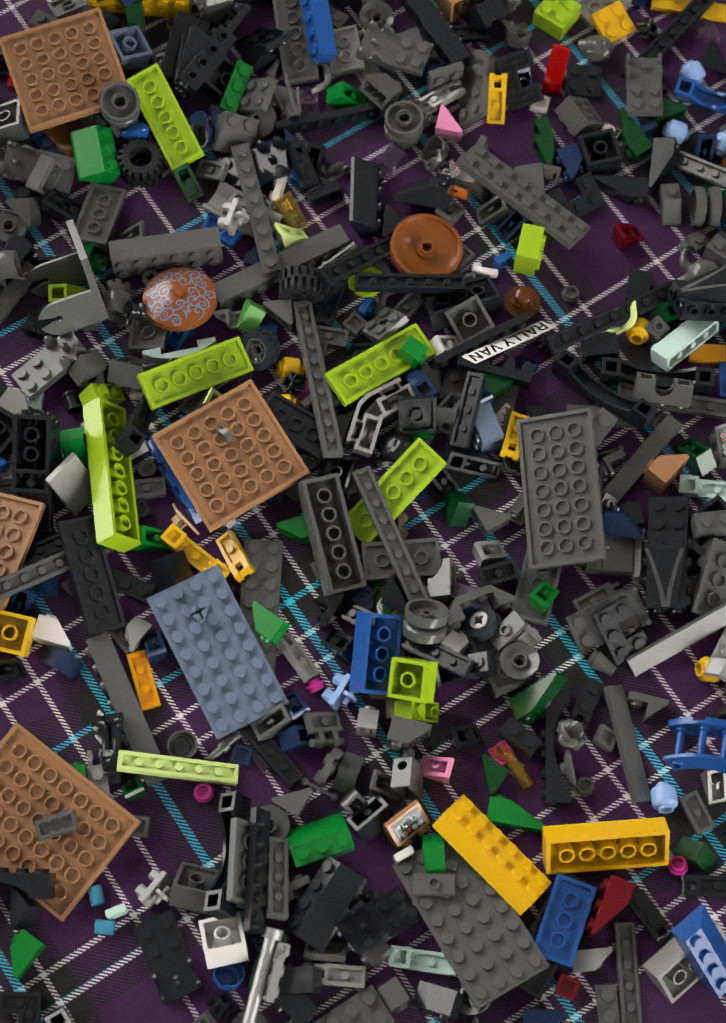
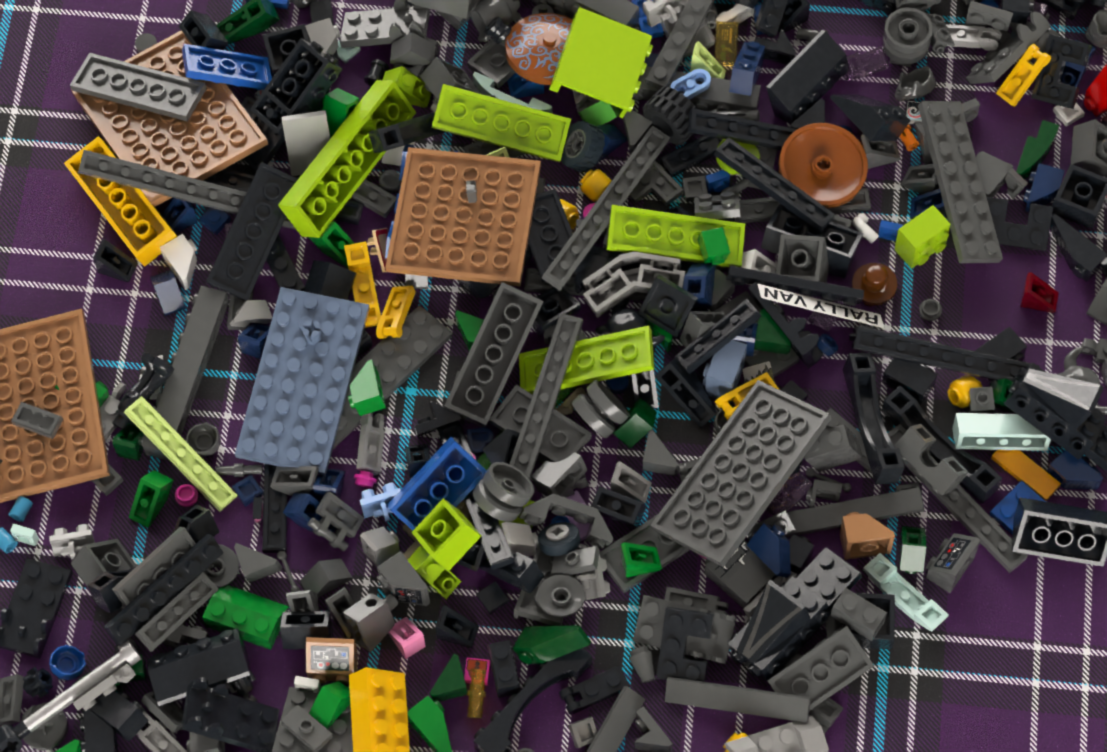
camera: 45 degrees right, 5 degrees down
(143, 680) = (221, 362): light orange tile -> none
(181, 814) = (150, 497): none -> green slope
(223, 941) = (83, 628): white brick -> none
(226, 280) = (602, 60): none -> lime panel
(293, 384) = (584, 198): black gear -> none
(294, 256) = (688, 83): none -> light blue plate
(323, 218) = (747, 68): none -> dark blue brick
(331, 764) = (308, 555): dark grey plate -> none
(431, 517) = (600, 409): none -> dark grey wheel
(447, 126) = (950, 67): bright pink slope -> none
(467, 697) = (492, 597): none -> black tile
(567, 768) = (523, 729): dark grey dish -> none
(570, 734) = (550, 699): dark grey hair -> none
(624, 327) = (954, 376): yellowish green animal -> none

